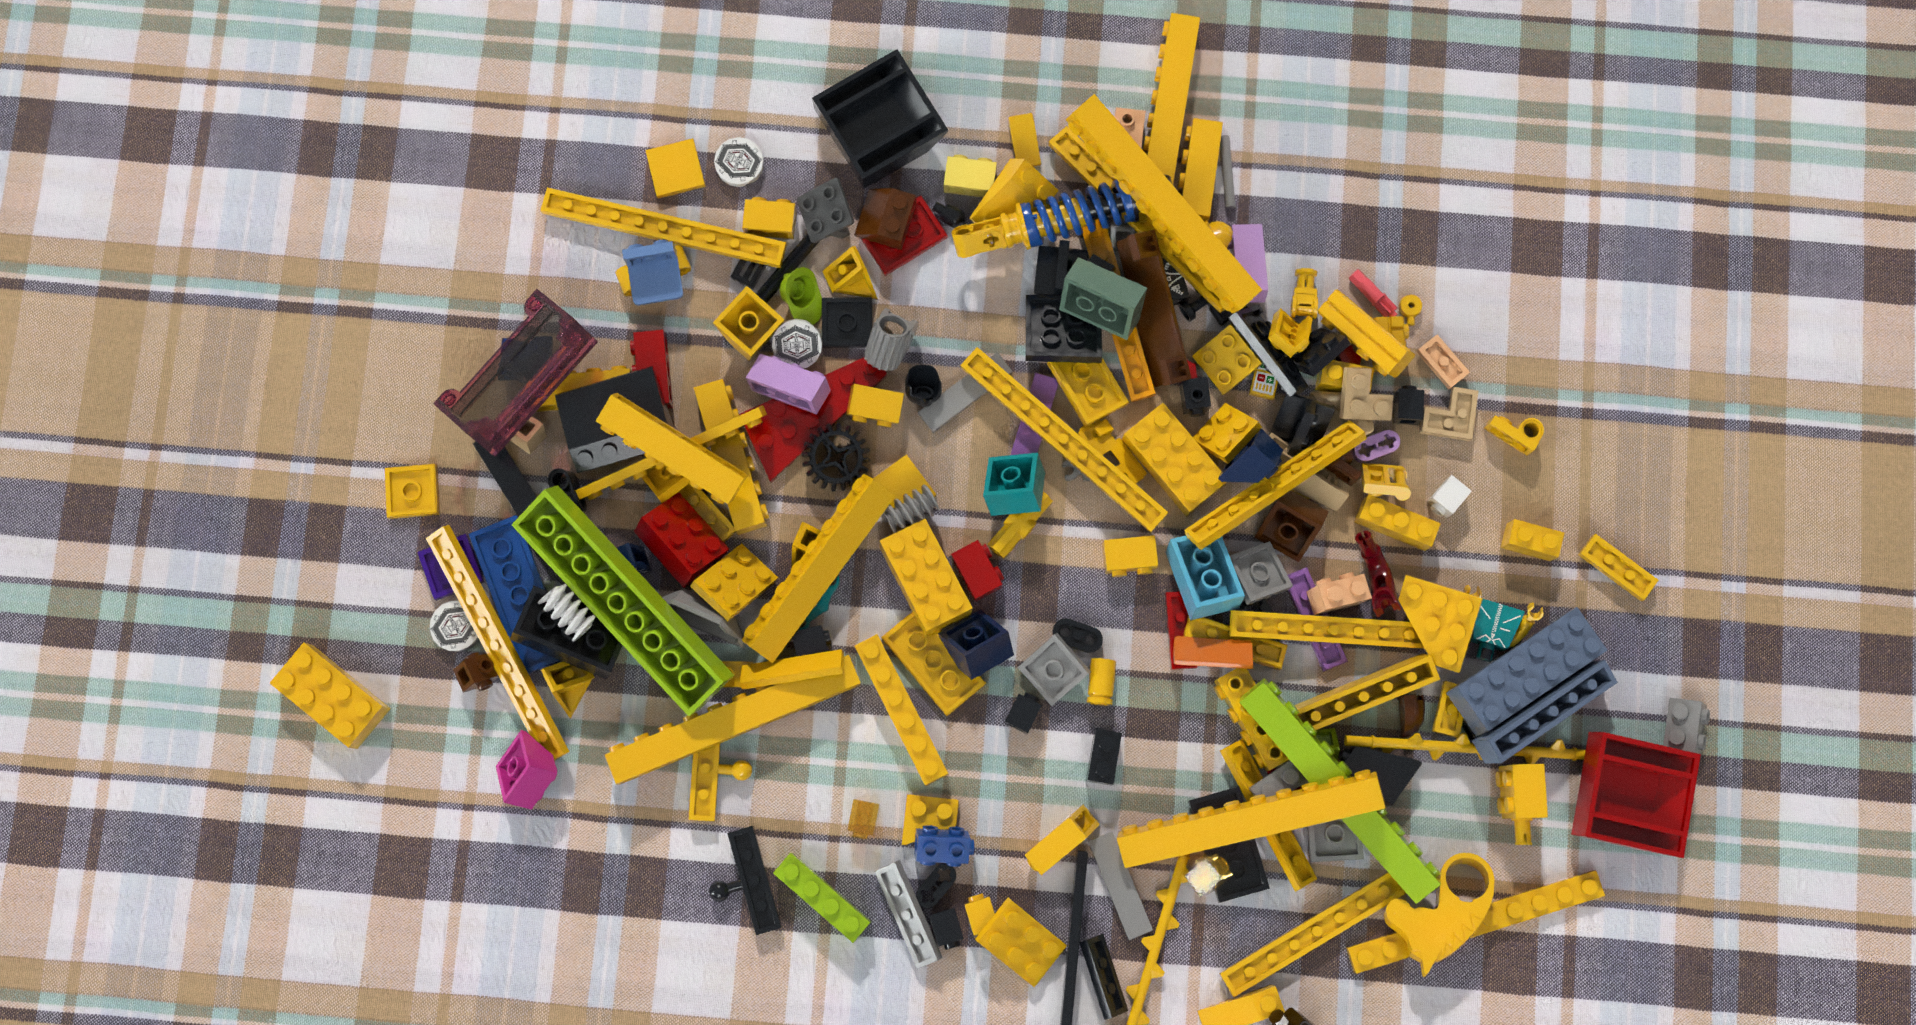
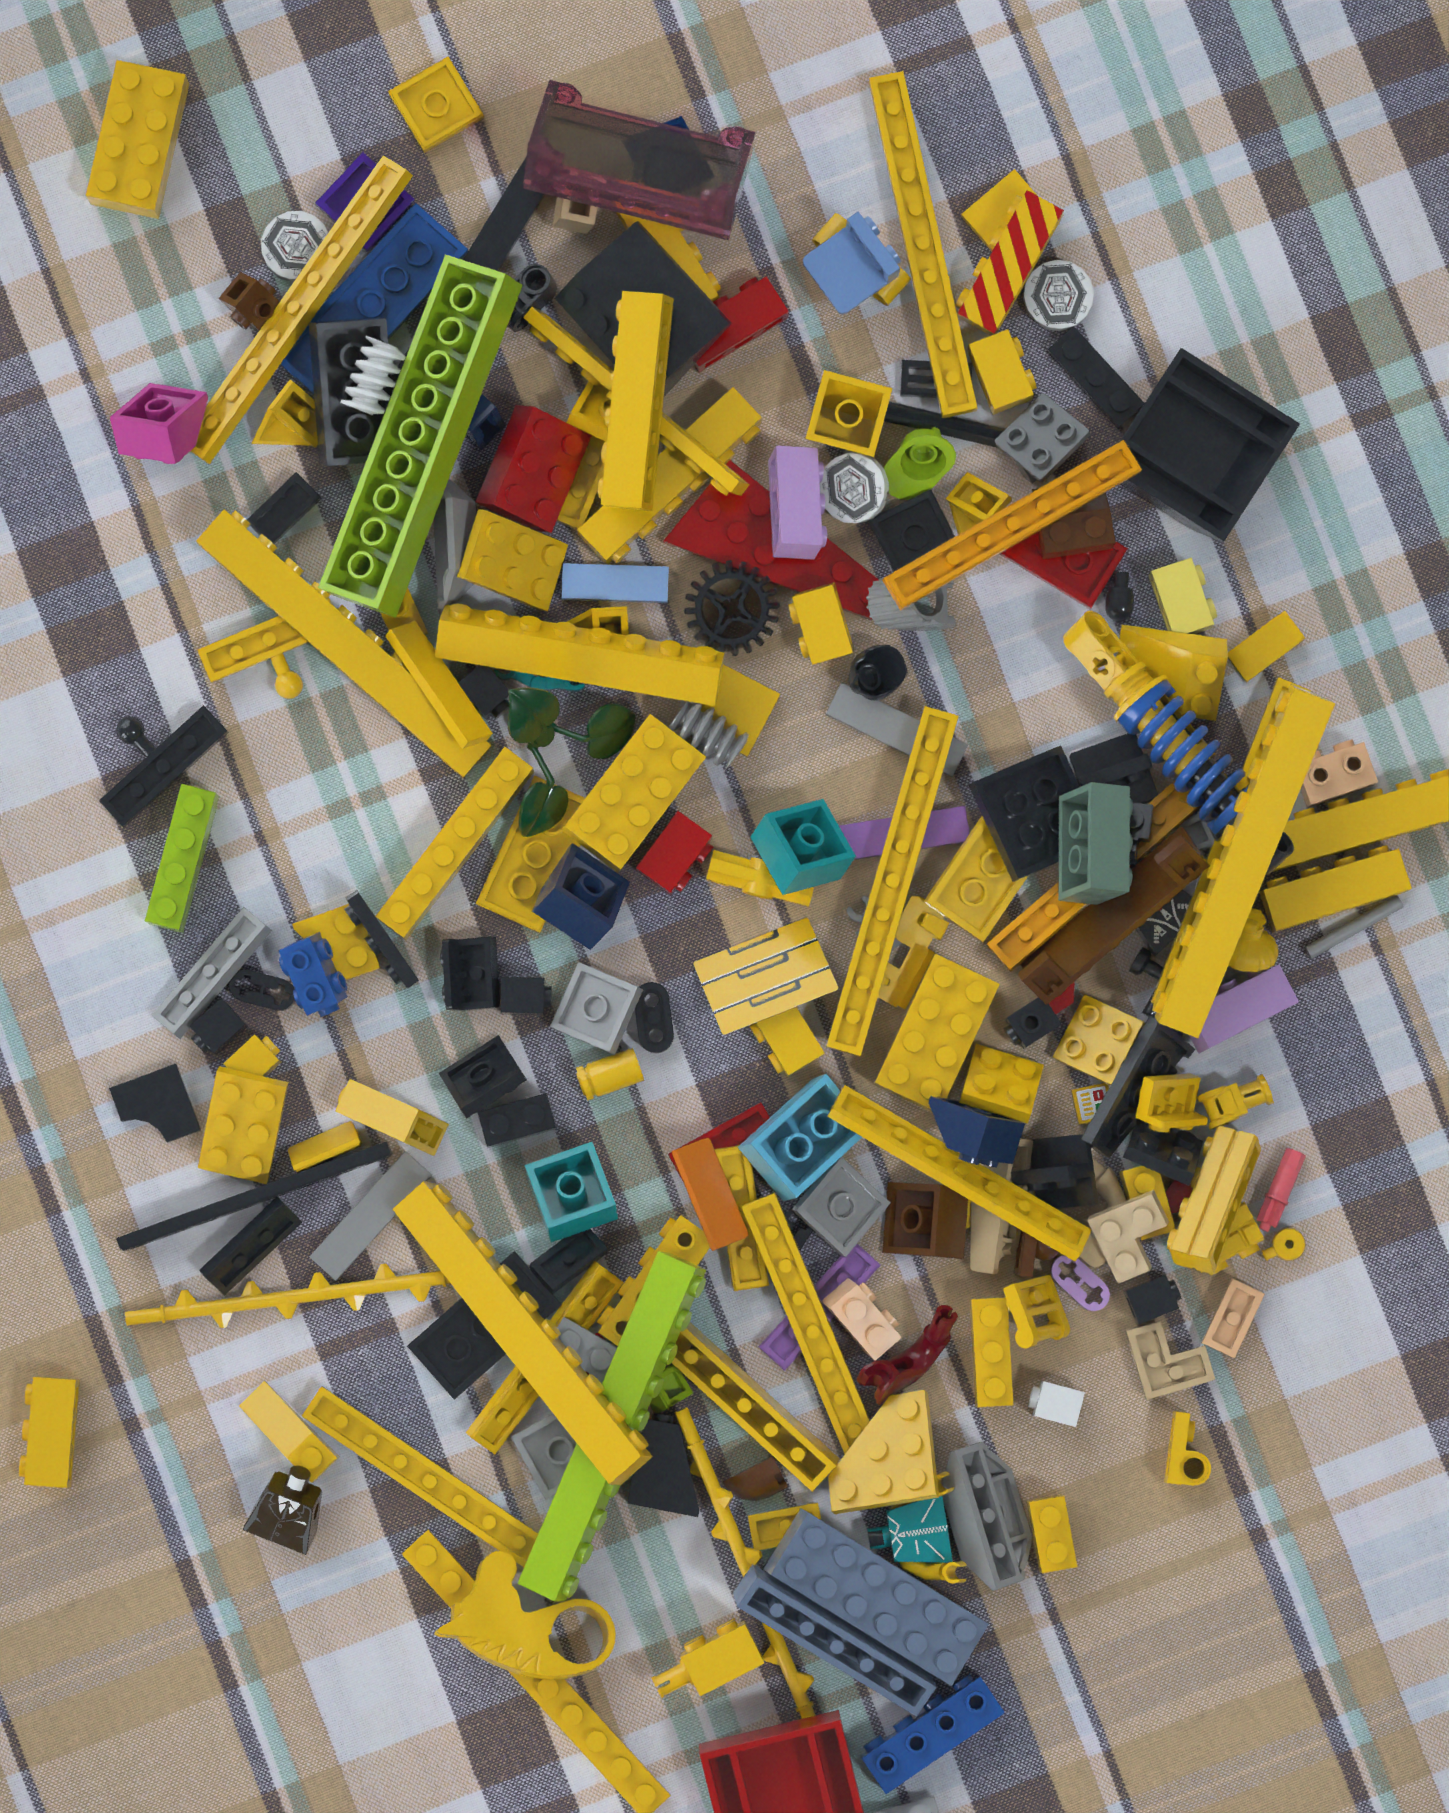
camera: 60 degrees right, 5 degrees up
(624, 716) = (284, 508): none -> black plate
(703, 178) = (1010, 263): none -> brick
(781, 525) = (615, 583): none -> light blue tile
(802, 164) = (1095, 377): none -> black plate
(850, 619) = (532, 722): none -> dark green plant
(863, 818) = (300, 862): clear yellow brick -> none
(873, 252) = (1011, 525): none -> light orange tile
(941, 790) = (379, 940): none -> black plate
(977, 991) = (159, 1100): none -> black tile
(991, 741) = (470, 974): none -> black bracket
(1060, 894) = (324, 1146): none -> yellow slope
(1064, 765) = (482, 1077): none -> black plate
(1085, 550) = (765, 976): none -> yellow sticker
(1168, 743) = (571, 1192): none -> teal brick
(1208, 874) = (433, 1314): clear yellow brick -> none
(1210, 767) = (567, 1259): none -> black plate
(1505, 576) = (987, 1516): none -> light grey wedge
(1618, 567) = (1070, 1659): yellow plate -> none
(1633, 691) = (931, 1733): none -> blue brick

